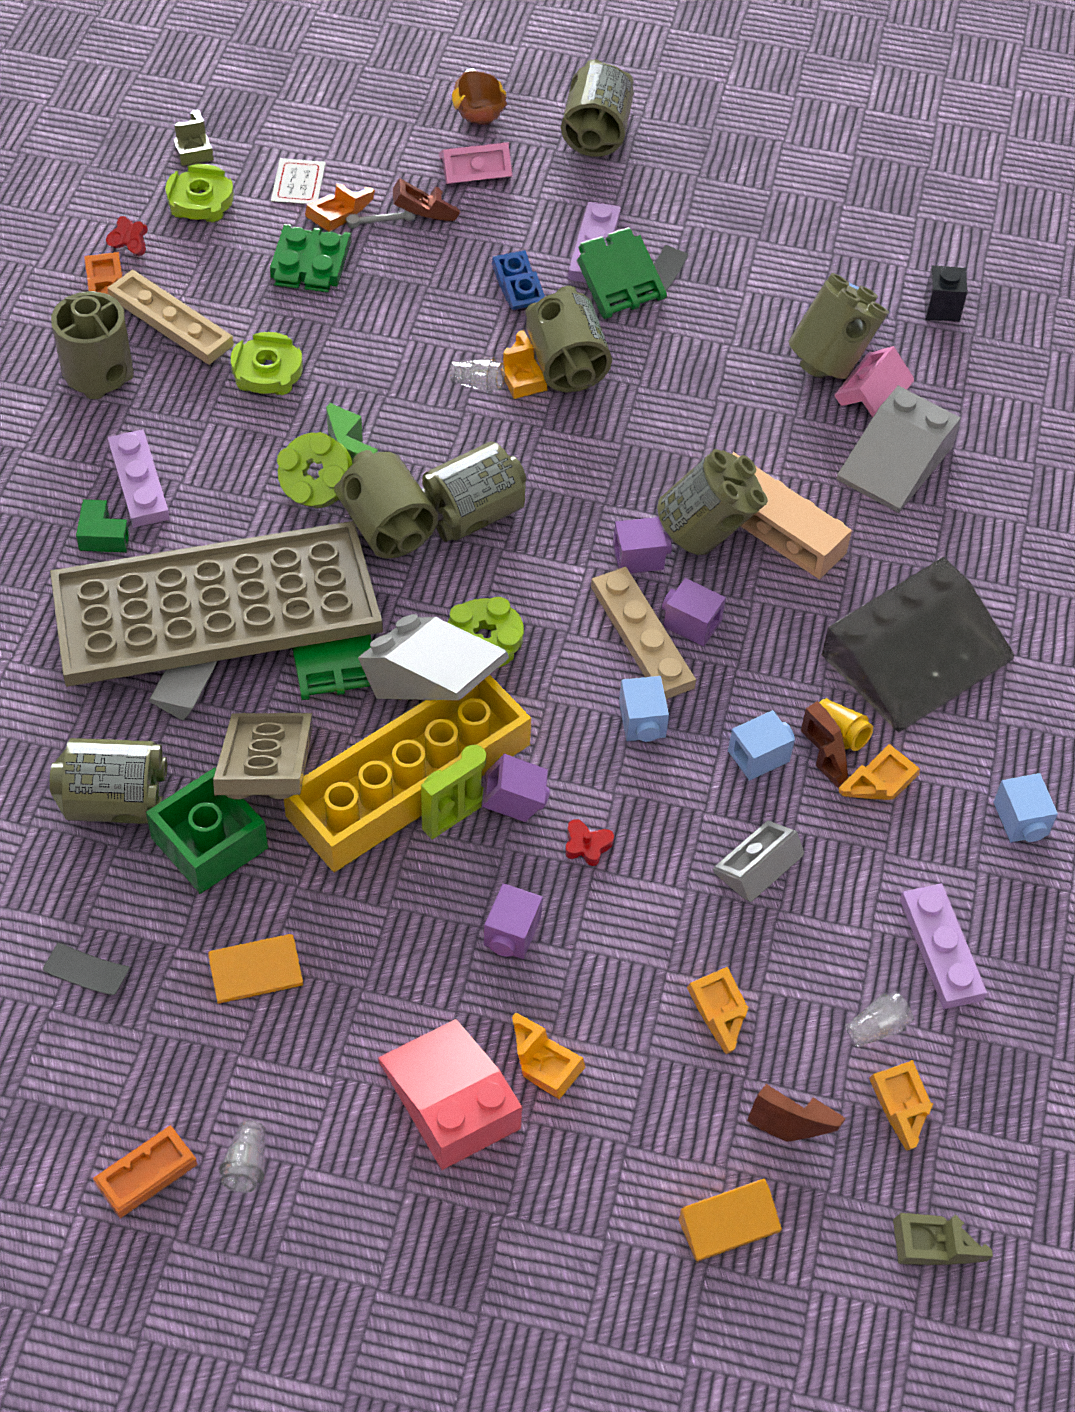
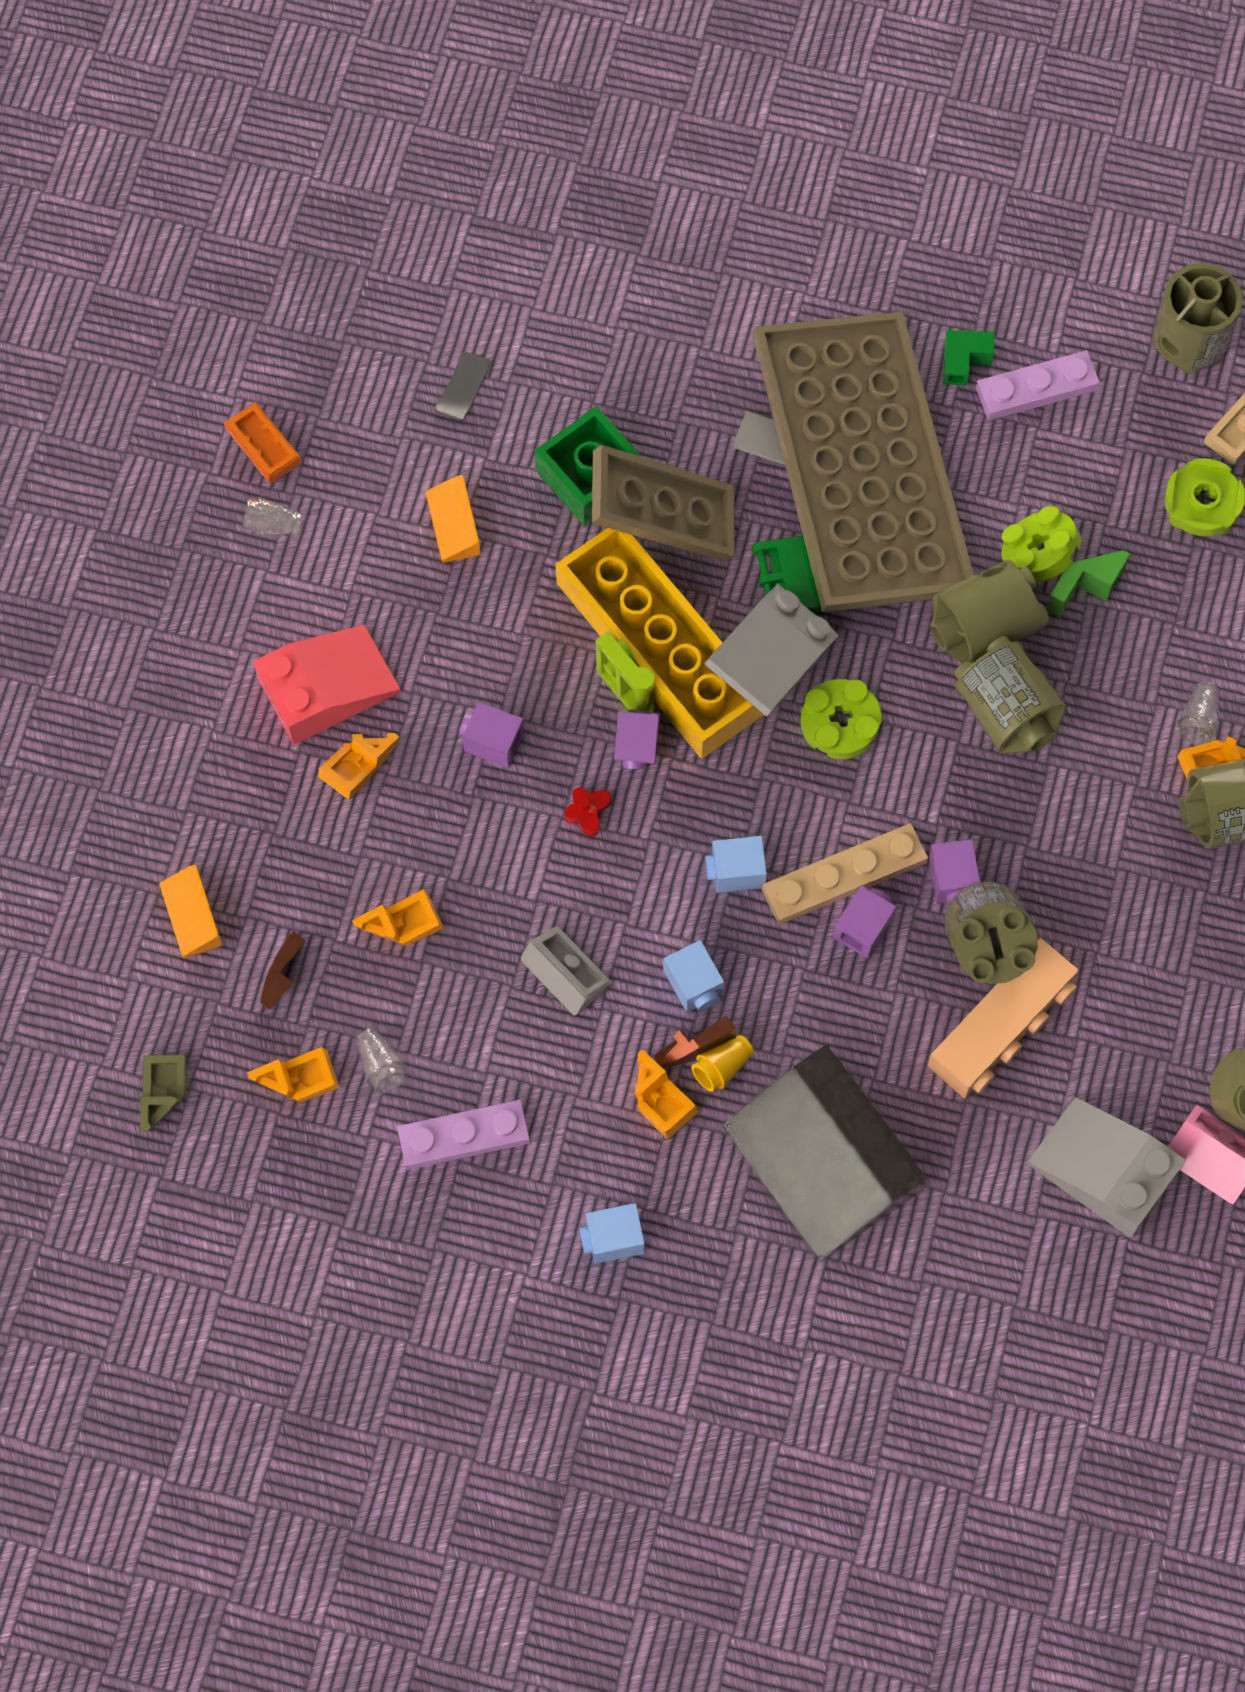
camera: 95 degrees right, 15 degrees up
(108, 780) = (641, 380): olive cylinder -> none

